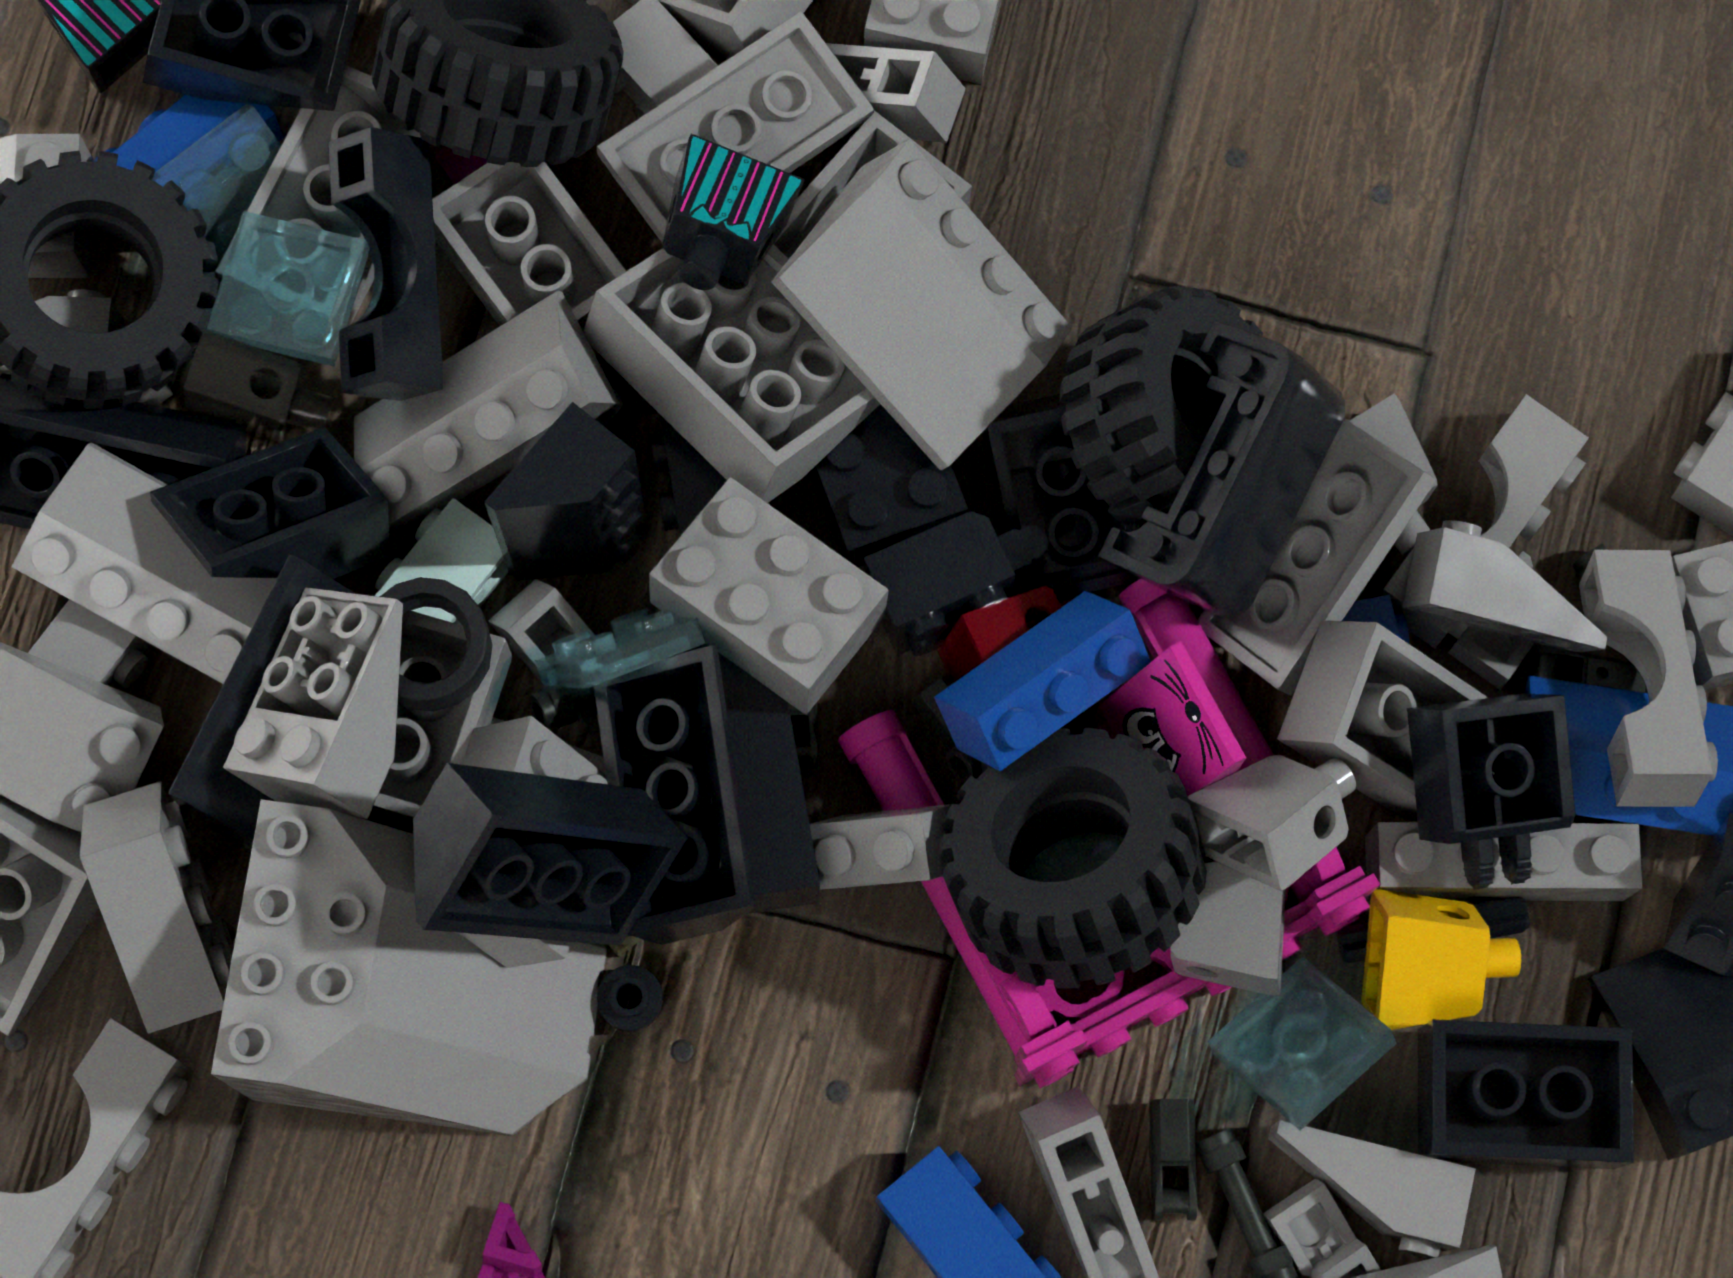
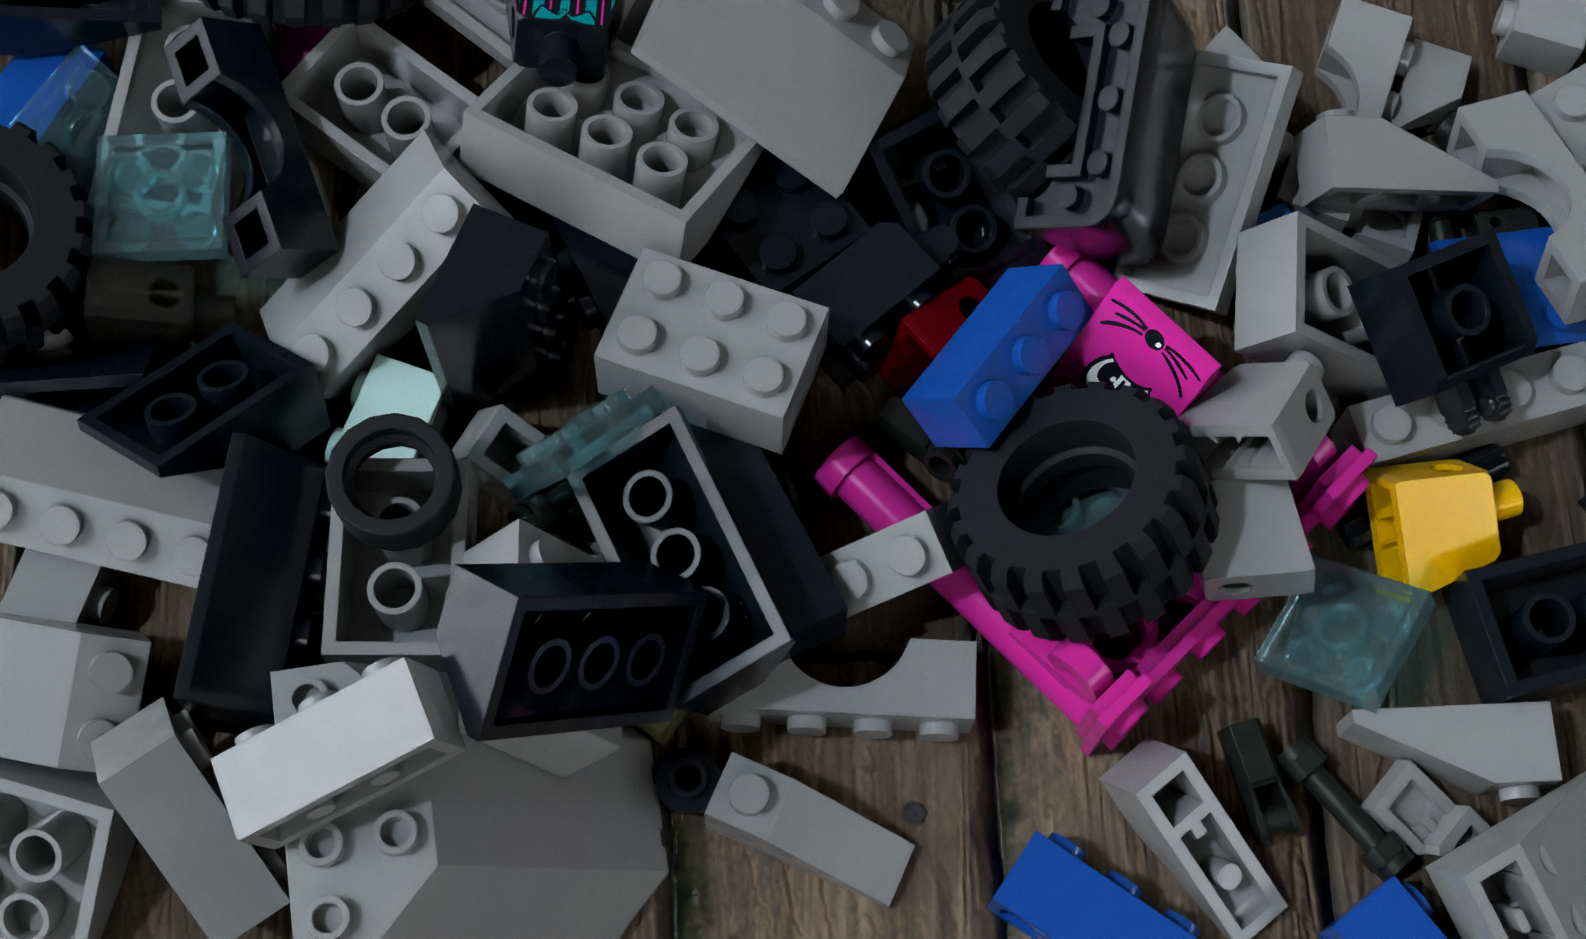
camera: 15 degrees left, 5 degrees down
(298, 898) = (337, 752): none -> light grey brick
(326, 705) = (310, 564): light grey slope -> none
(727, 1079) = (806, 830): none -> light grey slope
(879, 978) = (924, 692): none -> light grey arch
(1586, 512) = (1430, 86): none -> light grey slope

